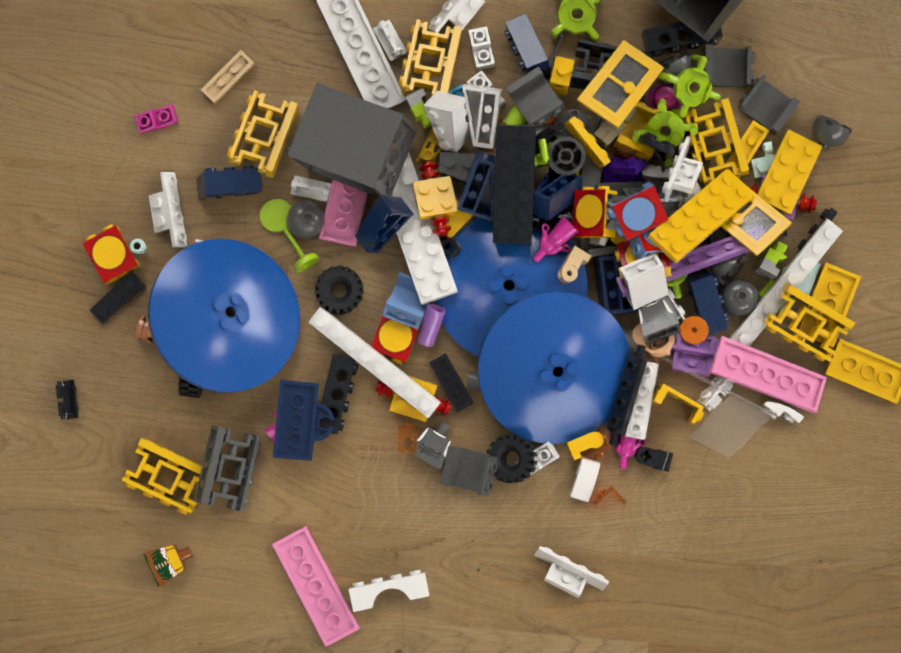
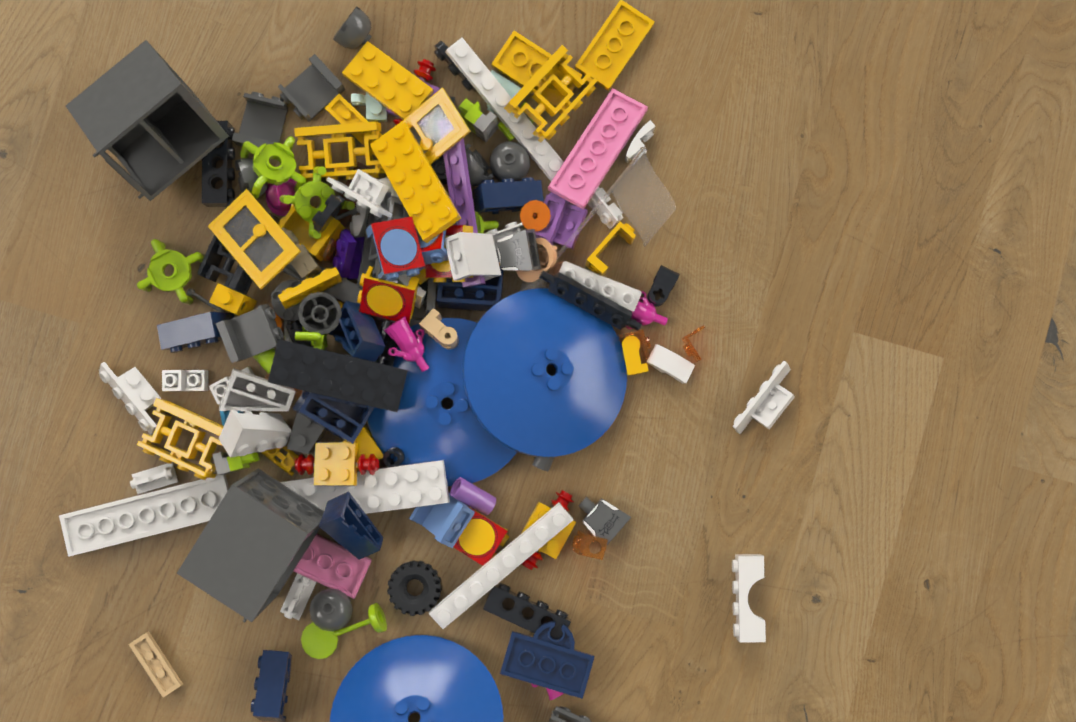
camera: 80 degrees left, 0 degrees up
(277, 137) = (233, 623): yellow fence -> none
(315, 586) = (728, 676): bright pink tile -> none
(451, 382) = (539, 485): black plate -> none
(469, 470) = (637, 486): dark grey panel -> none
(526, 458) = (634, 452): black tyre -> none
(545, 454) = (639, 410): white slope -> none

